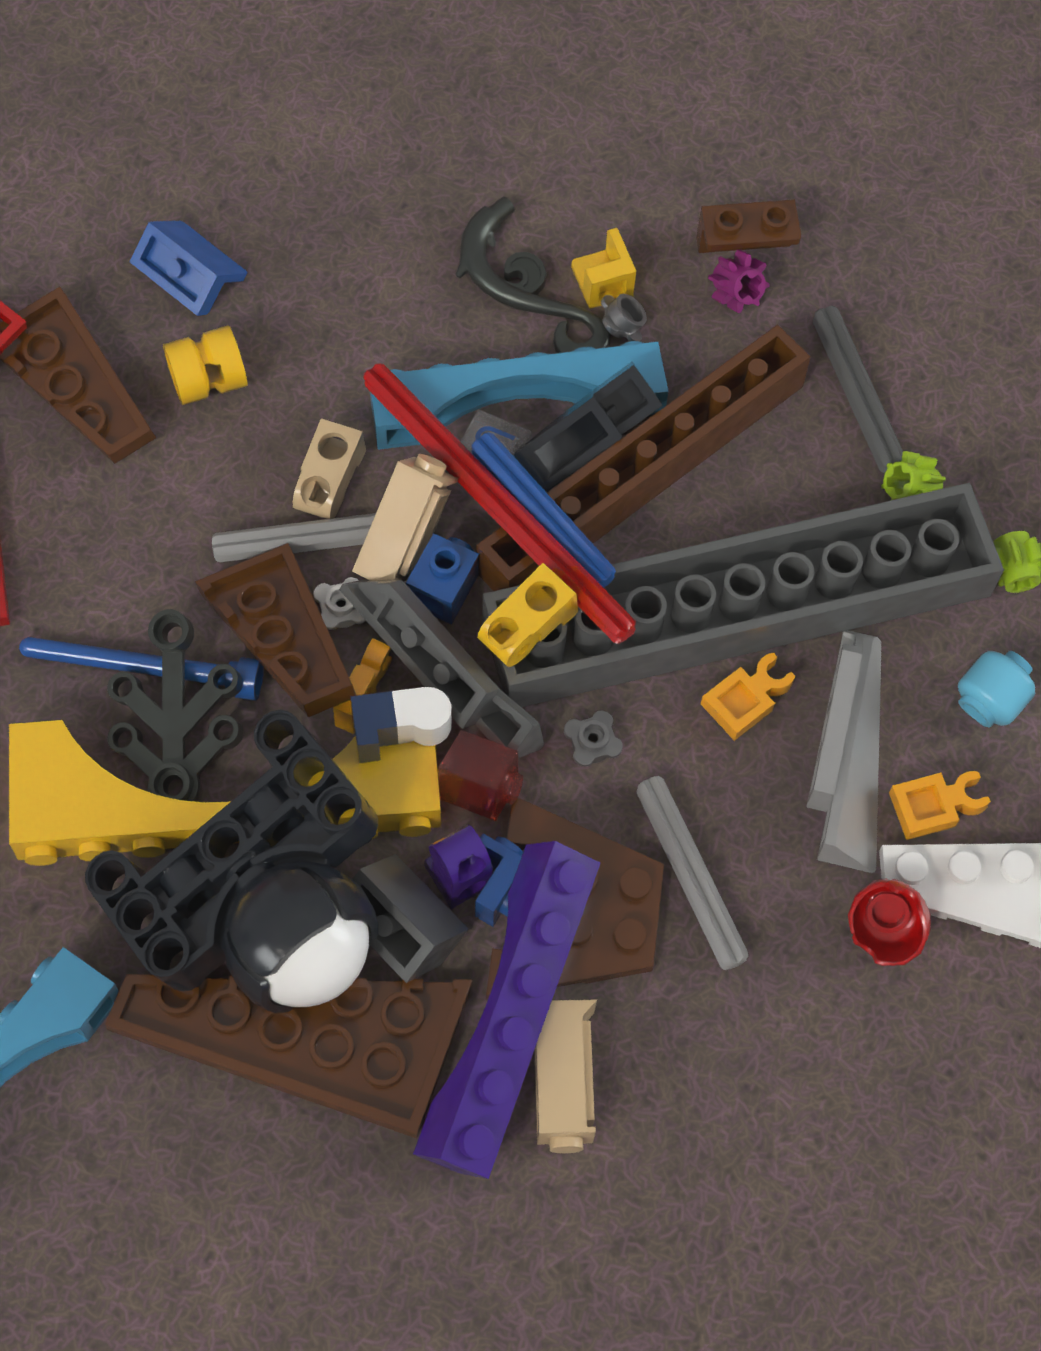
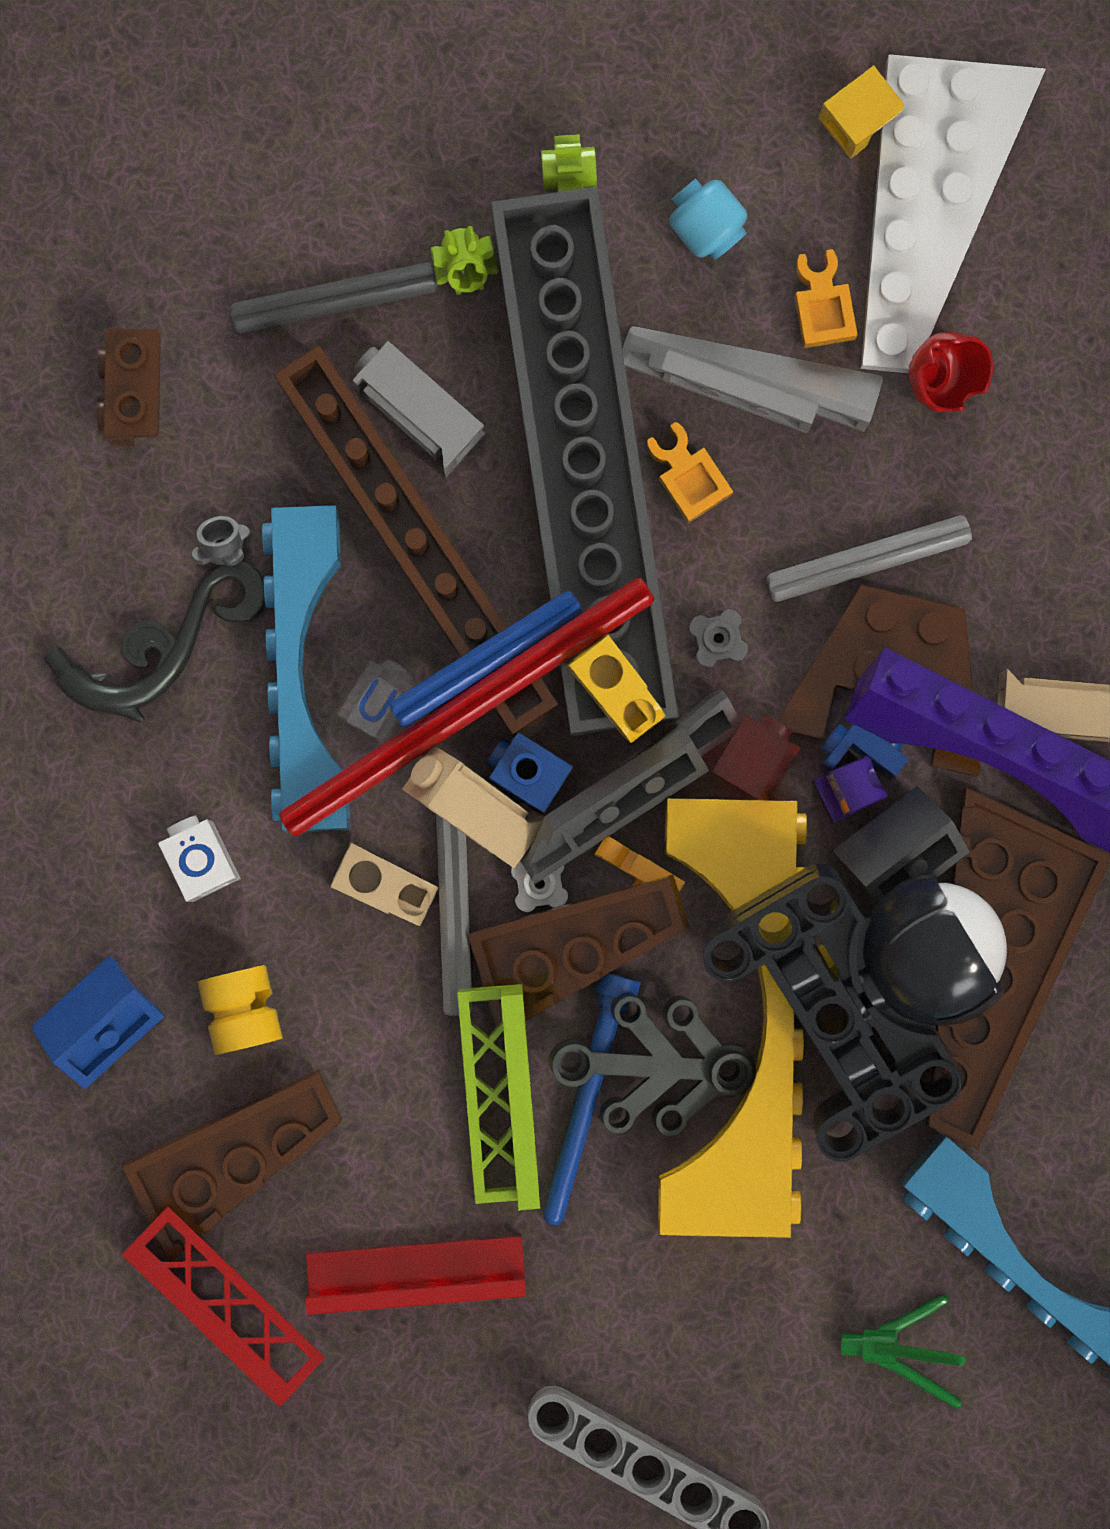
camera: 85 degrees left, 20 degrees up
(140, 591) = (520, 1098): none -> lime fence
(337, 324) = (198, 858): none -> white brick
(400, 718) = (703, 834): leg -> none
(588, 427) = (375, 596): black slope -> none
(605, 271) = (156, 555): yellow panel -> none
(739, 281) = (191, 407): magenta gear -> none
(769, 460) = (417, 405): none -> light grey window

